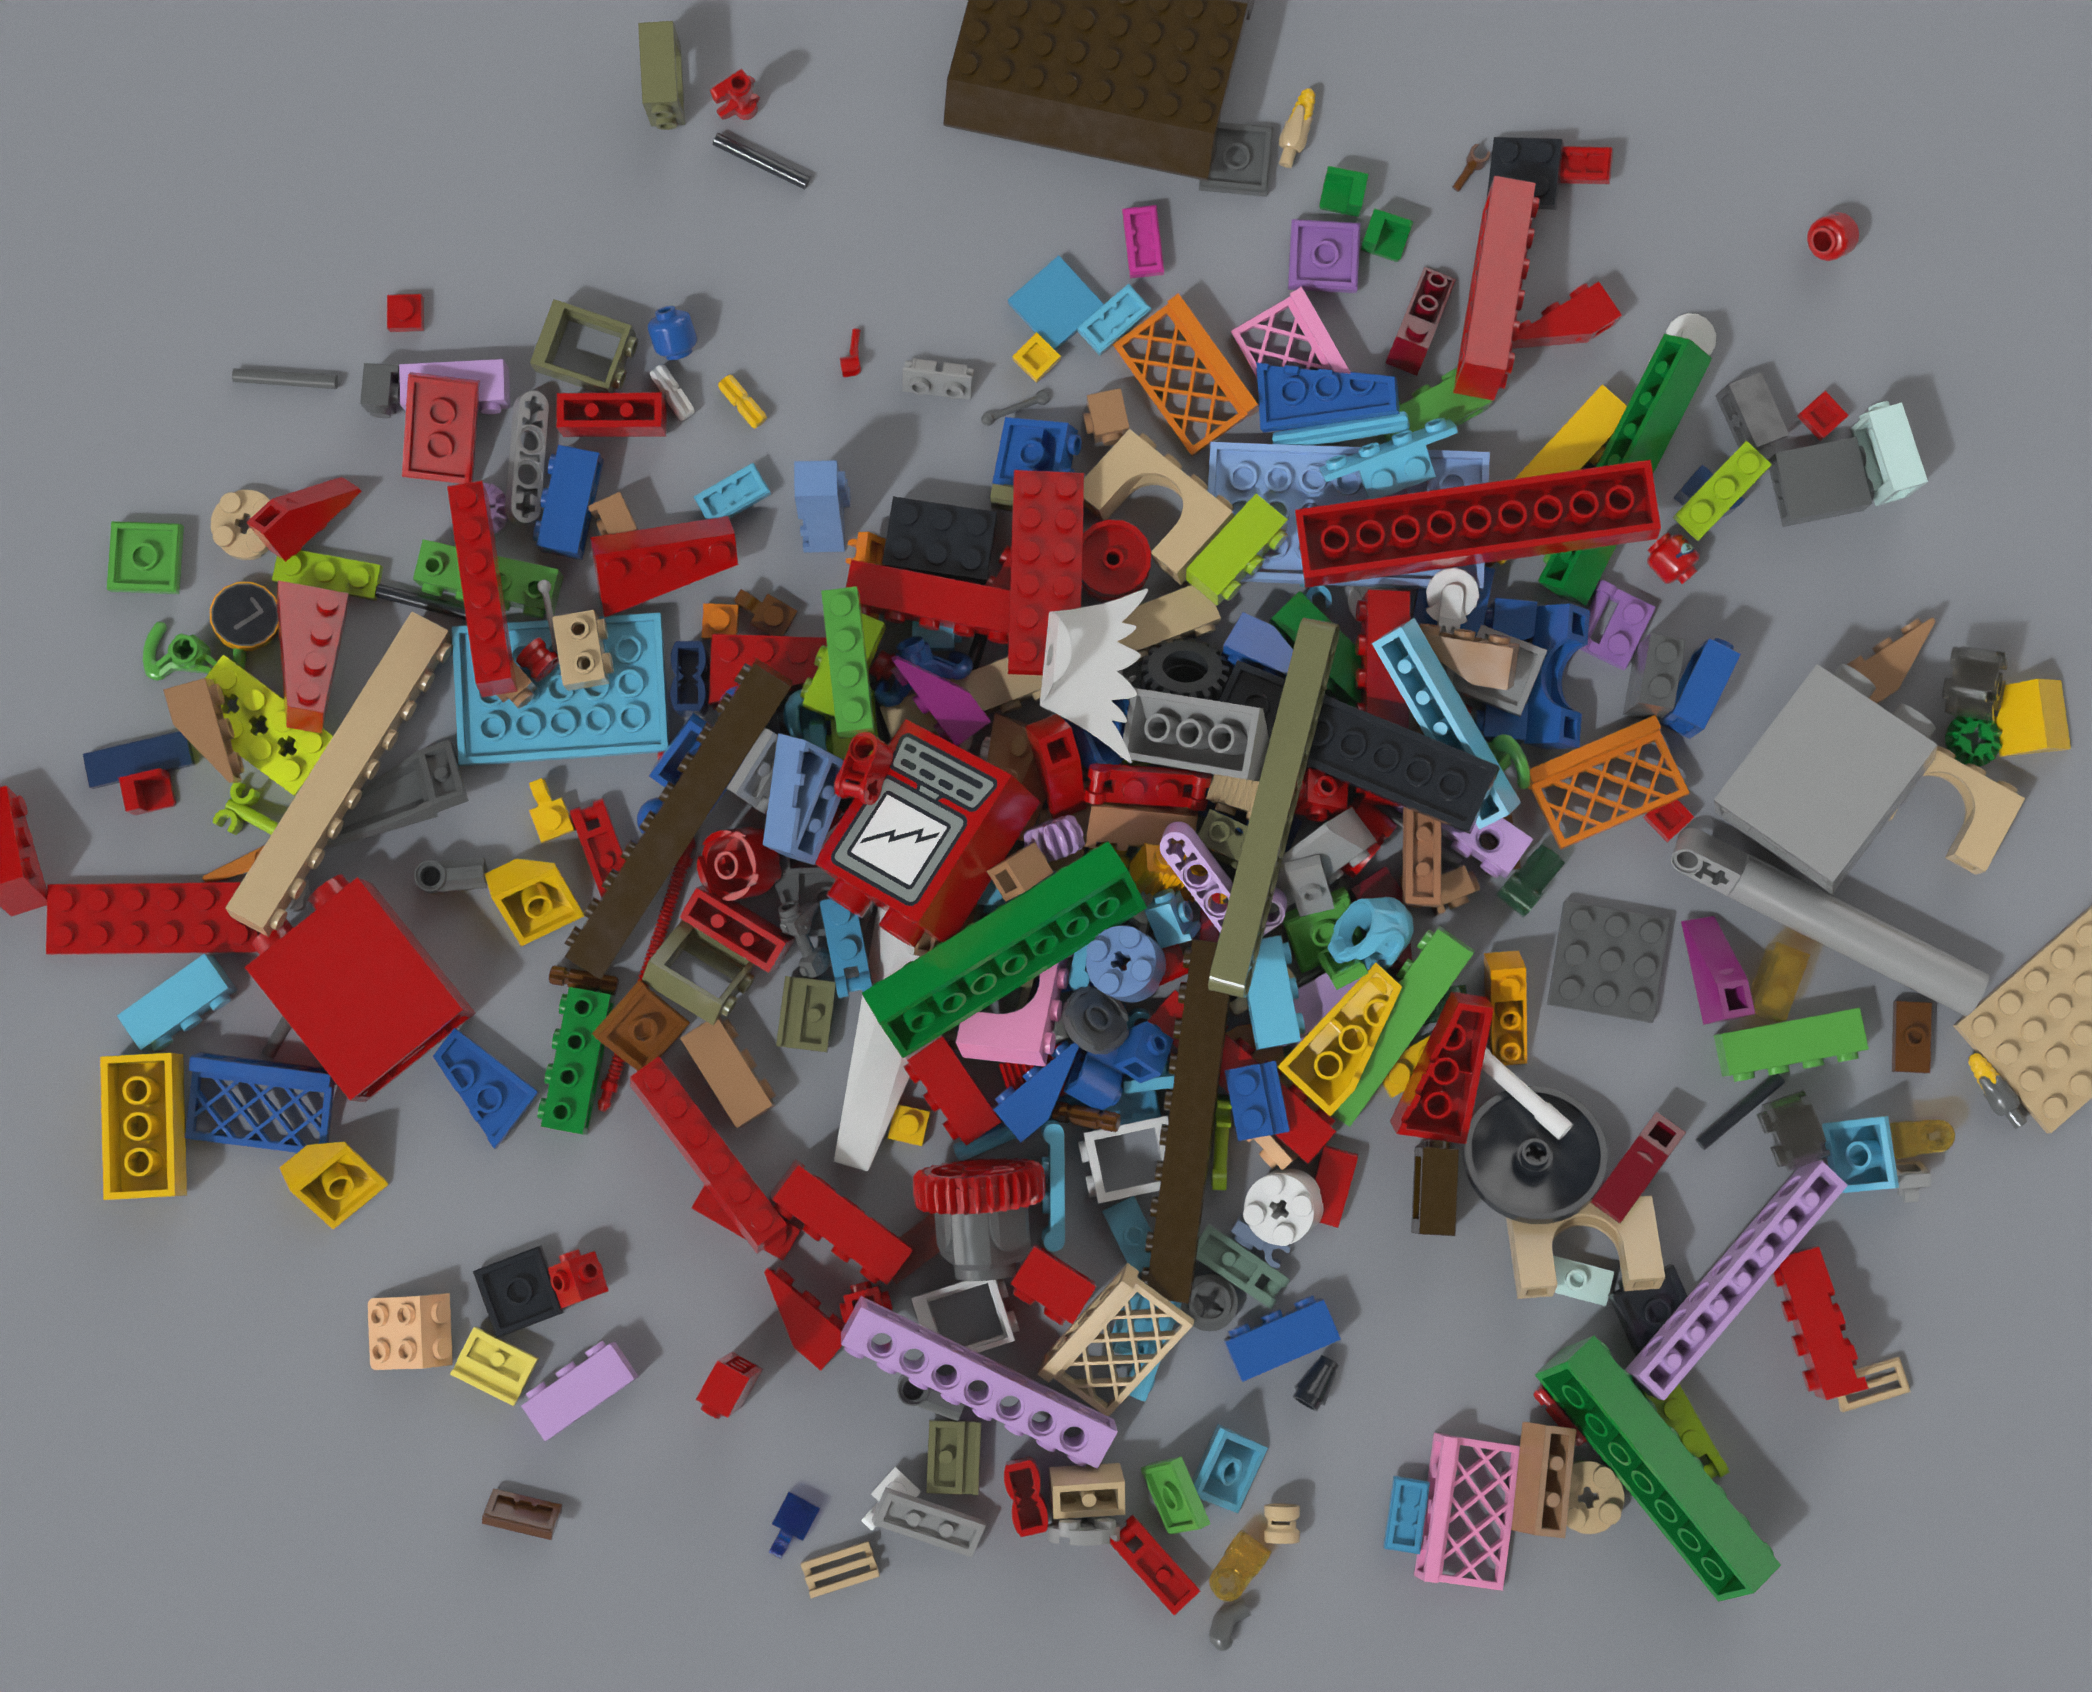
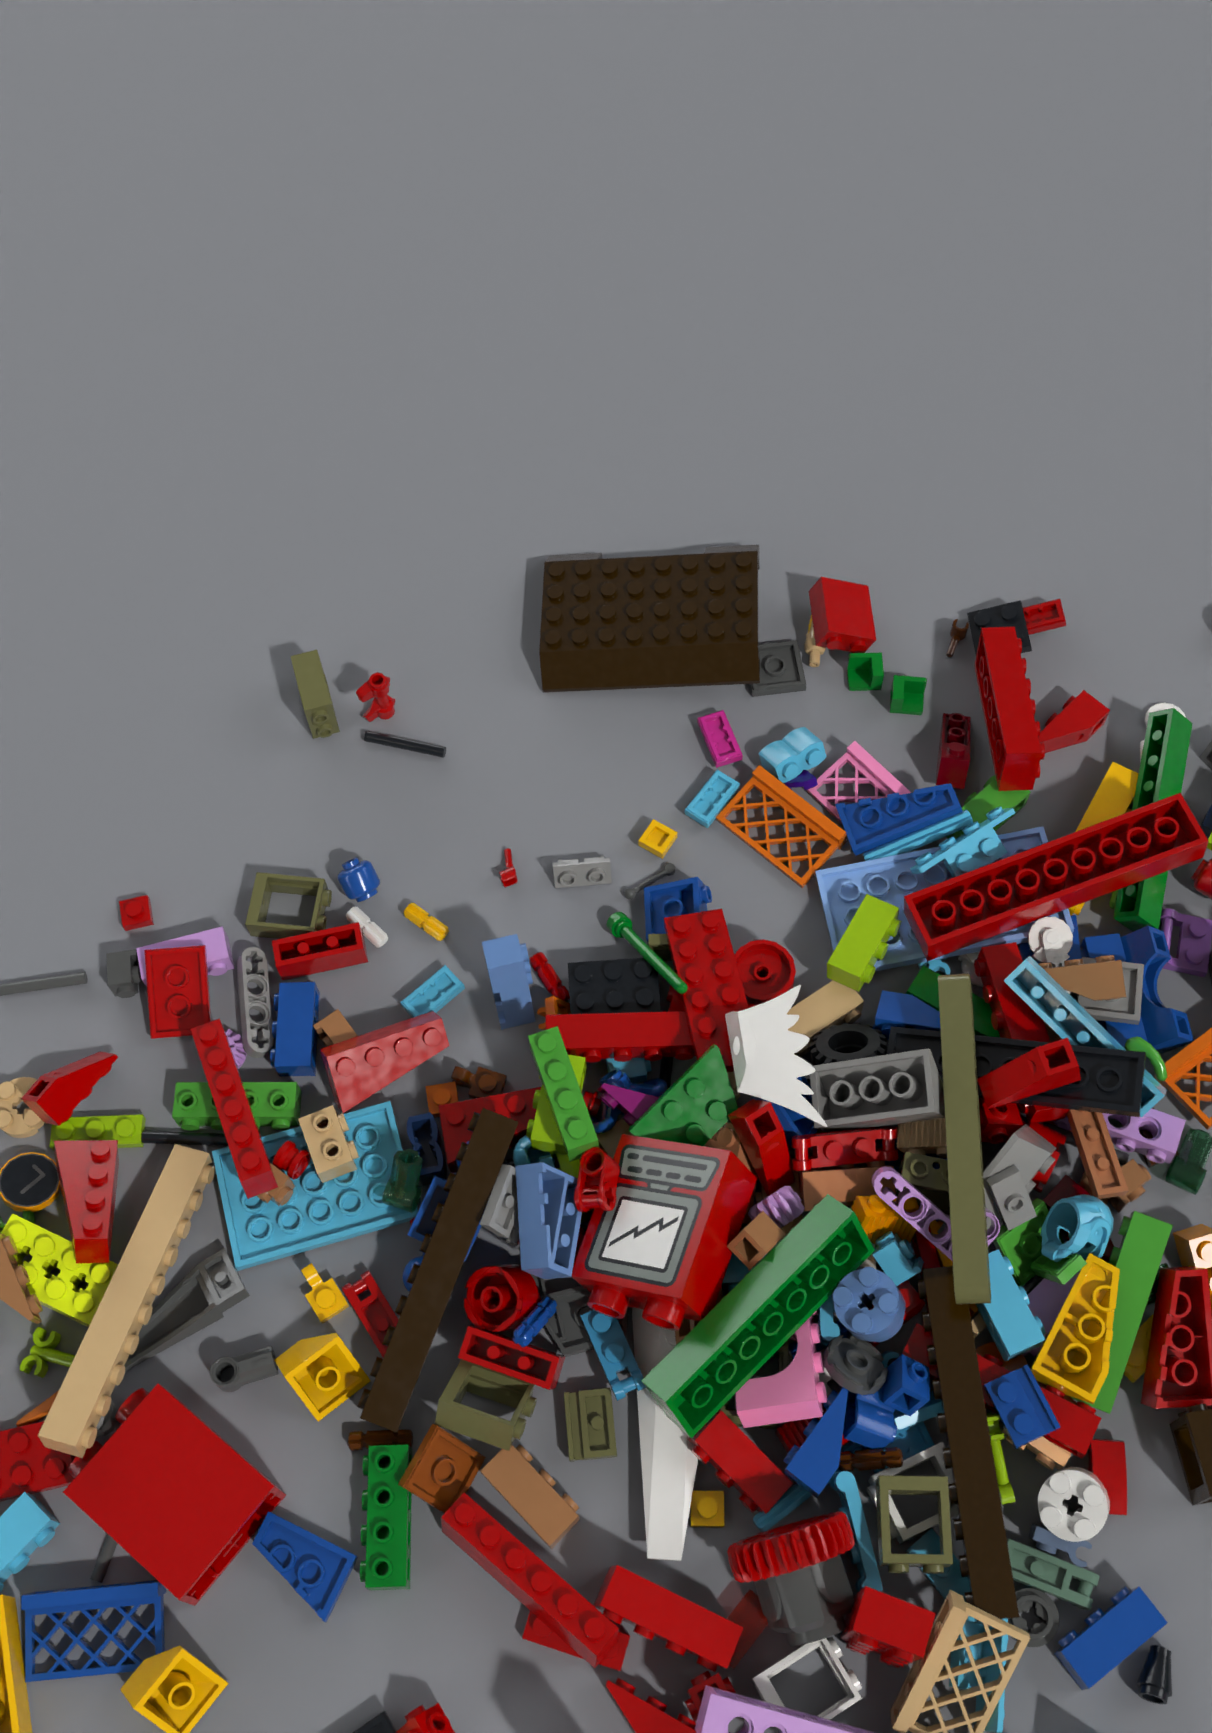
camera: 10 degrees left, 20 degrees down
(544, 587) = (287, 1097): light grey hinge -> none
(655, 718) = (403, 1188): none -> clear green piece
(684, 862) = (423, 1532): red hose -> none
(768, 898) = (534, 1321): none -> blue axle
(797, 922) = (565, 1338): dark grey piece -> none
(870, 503) = (549, 976): none -> red axle
(967, 461) = (621, 927): none -> green piece
(987, 707) = (693, 1105): none -> green wing
(1055, 303) = (661, 796): dark azure tile -> none
(1106, 416) = (726, 870): medium nougat brick -> none
(1116, 1233) = (913, 1486): none -> olive window
(1137, 464) = (761, 899): tan arch -> none
(1223, 286) = (792, 754): none -> medium azure brick
(1223, 318) = (804, 779): none -> dark purple tile
(1324, 256) = (864, 719): medium lavender plate -> none
(1334, 110) = (842, 615): none -> red brick
(1365, 761) = (1031, 1074): none -> red slope

